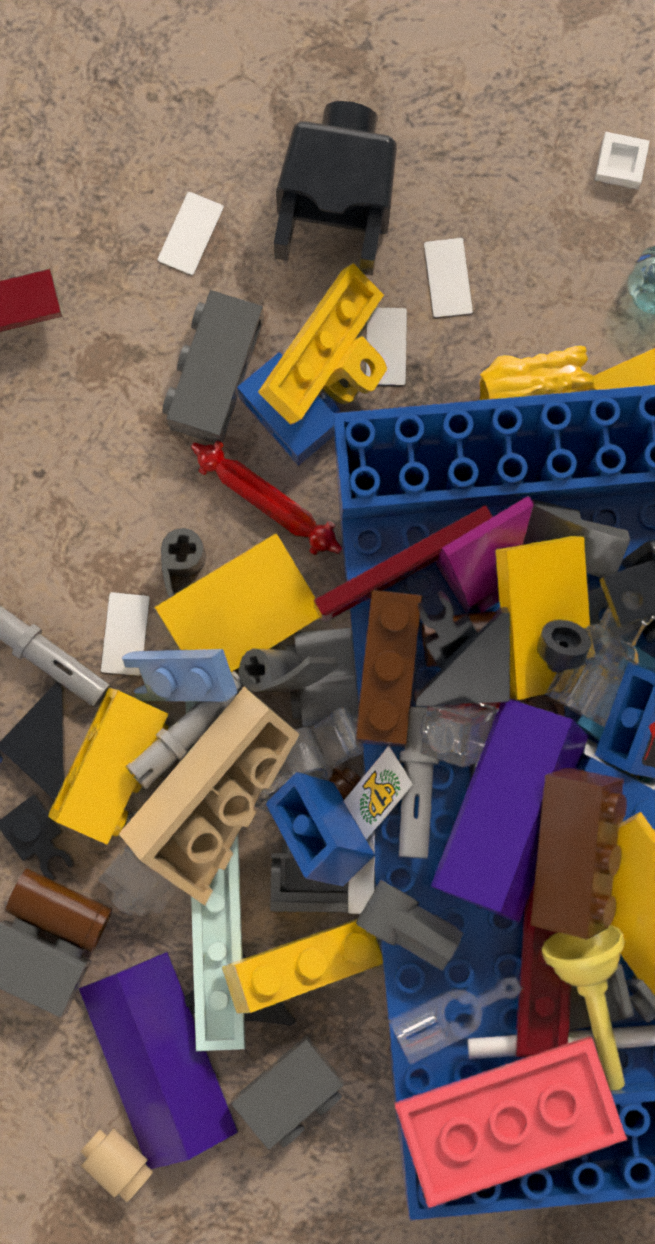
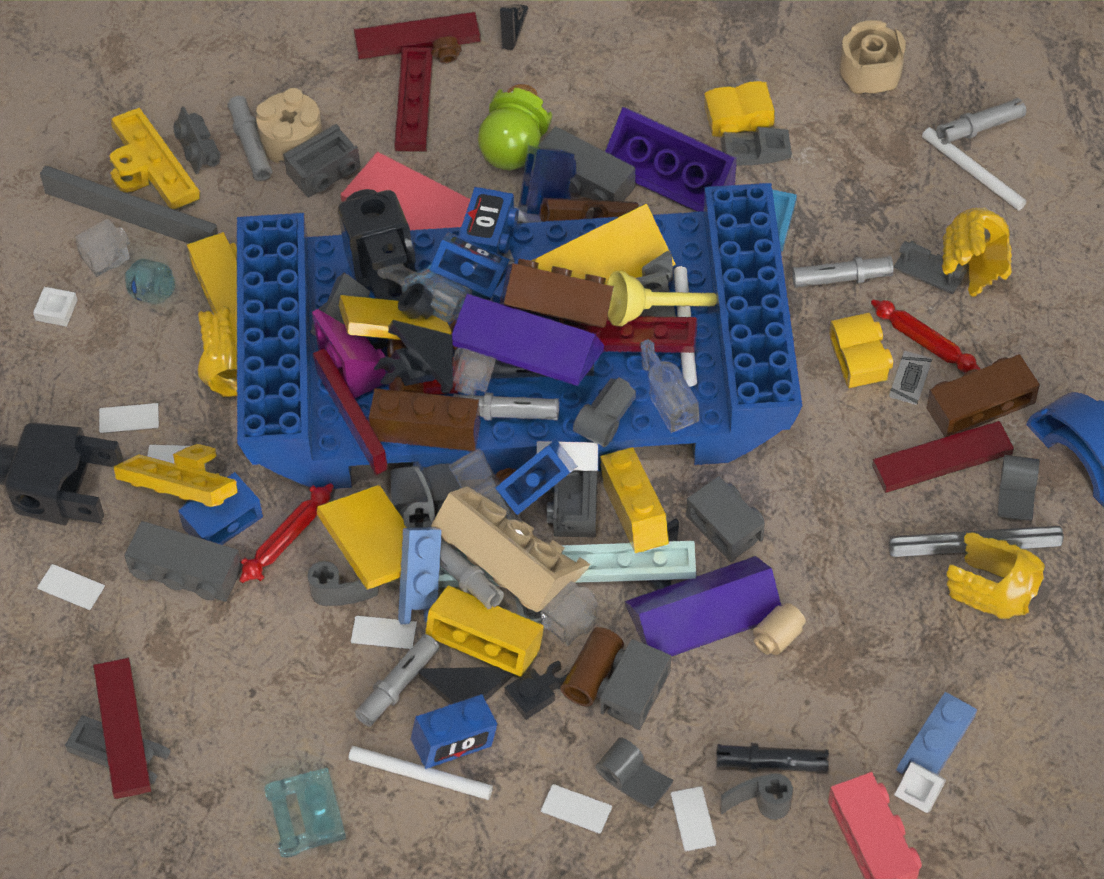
camera: 85 degrees left, 25 degrees down
(378, 792) = (512, 435): white sticker -> none
(510, 1121) = (734, 342): coral tile -> none

